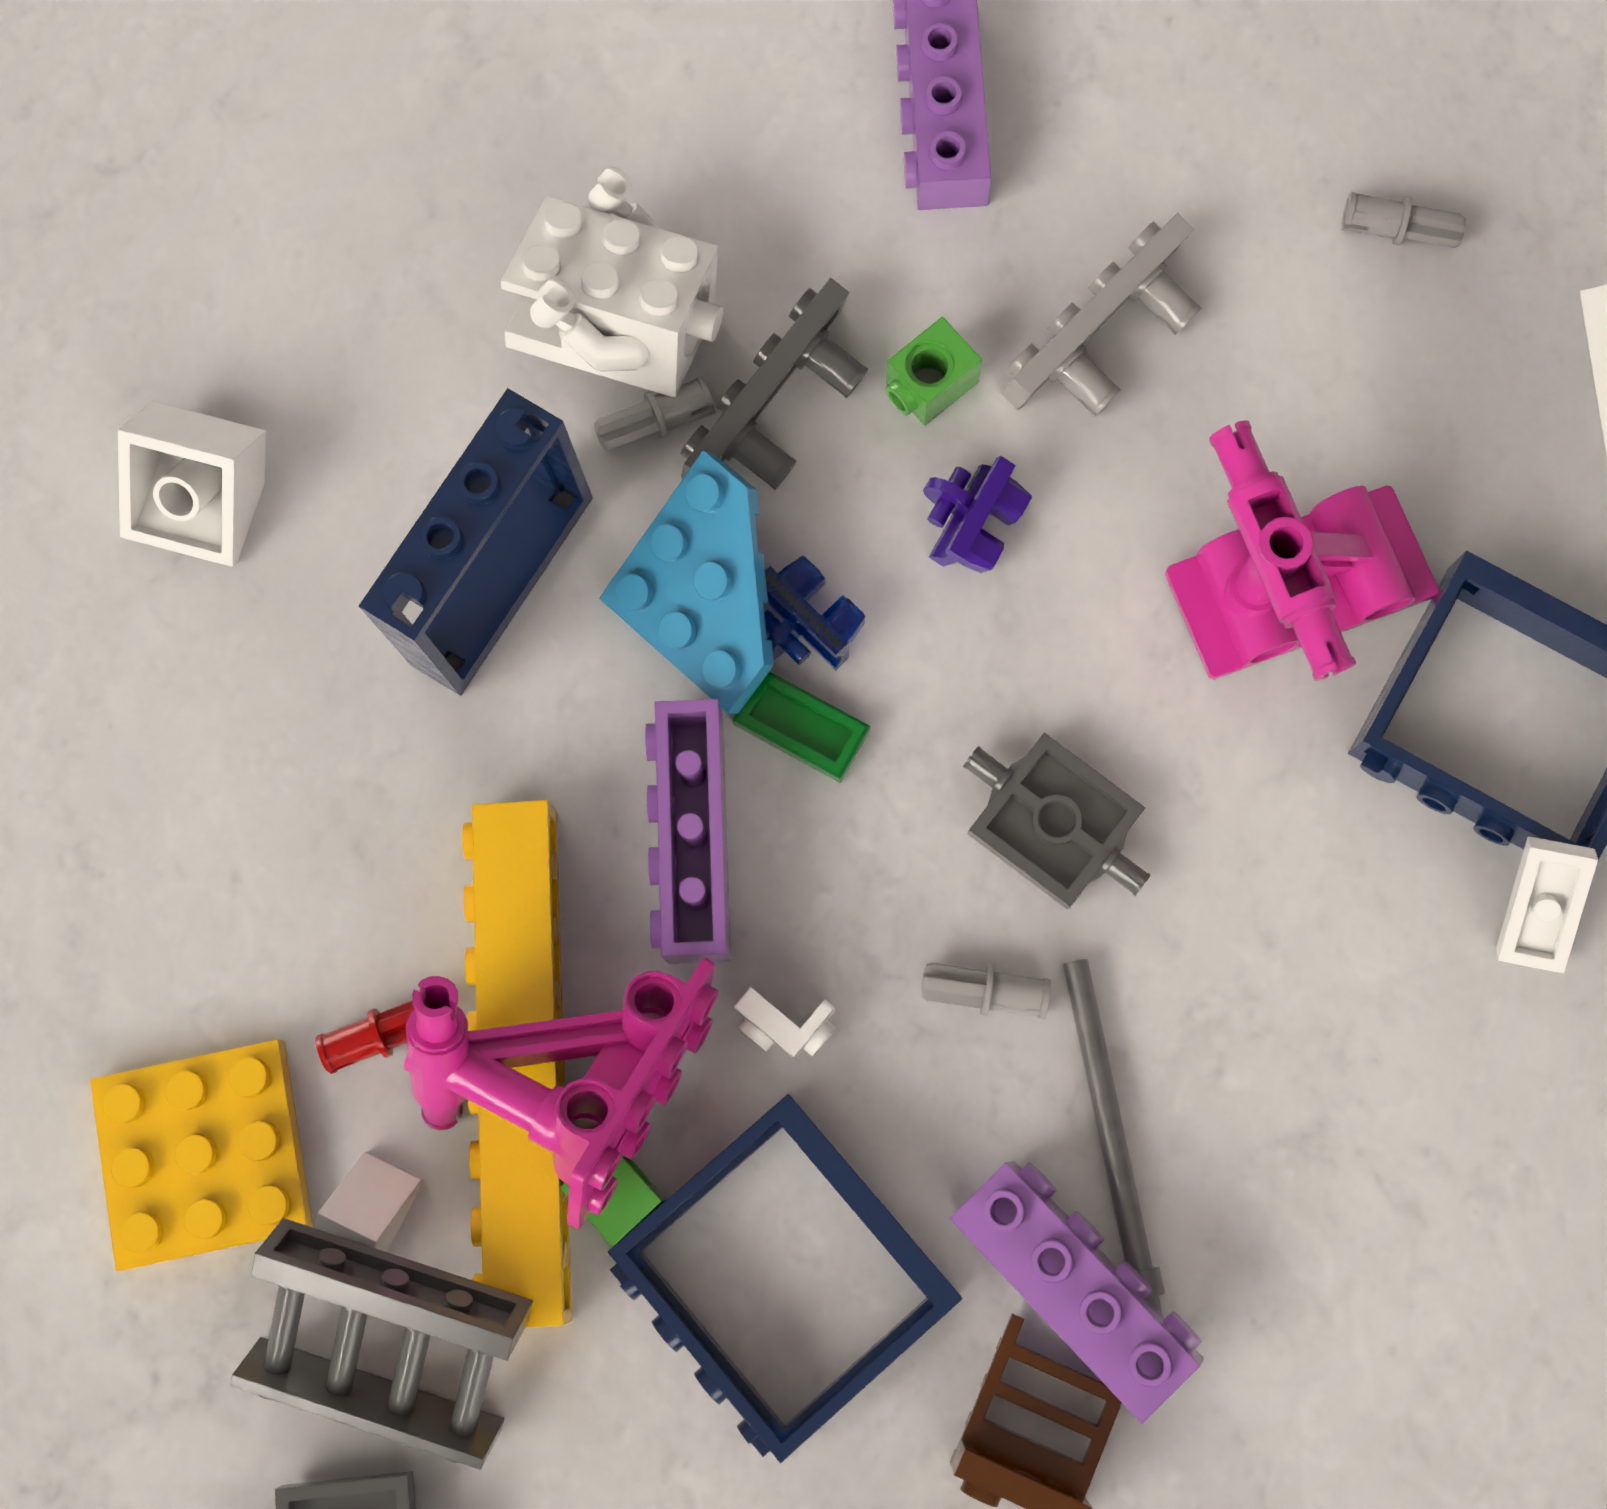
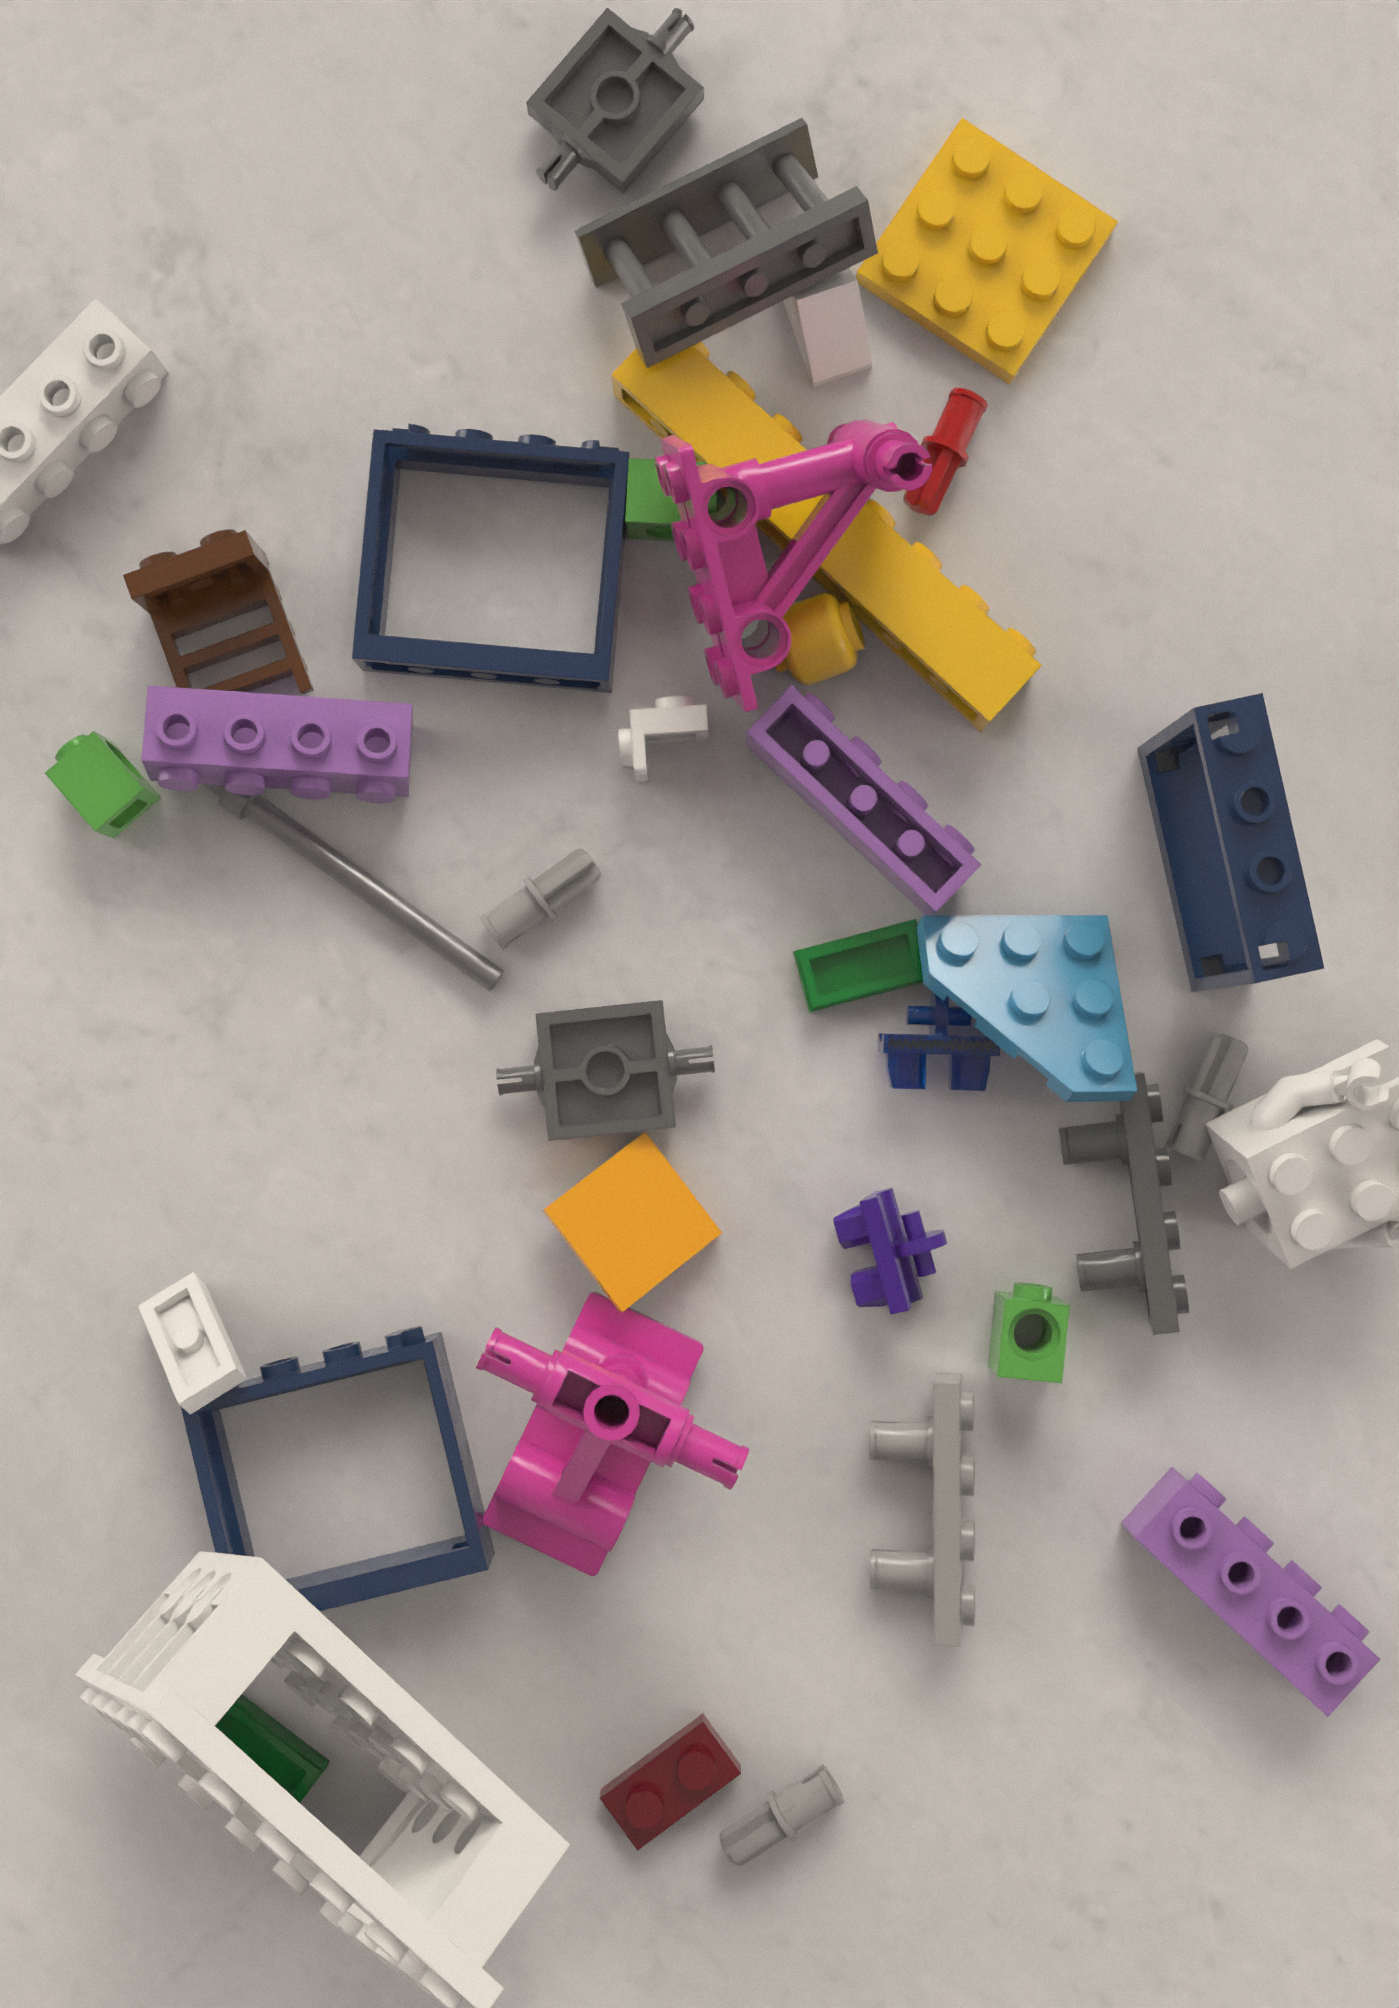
camera: 130 degrees right, 10 degrees up
(599, 976) = (822, 639): none -> yellow head
(1137, 698) = (632, 1222): none -> light orange tile
(1243, 1397) = (101, 783): none -> bright green brick
(1460, 310) = (670, 1781): none -> dark red plate

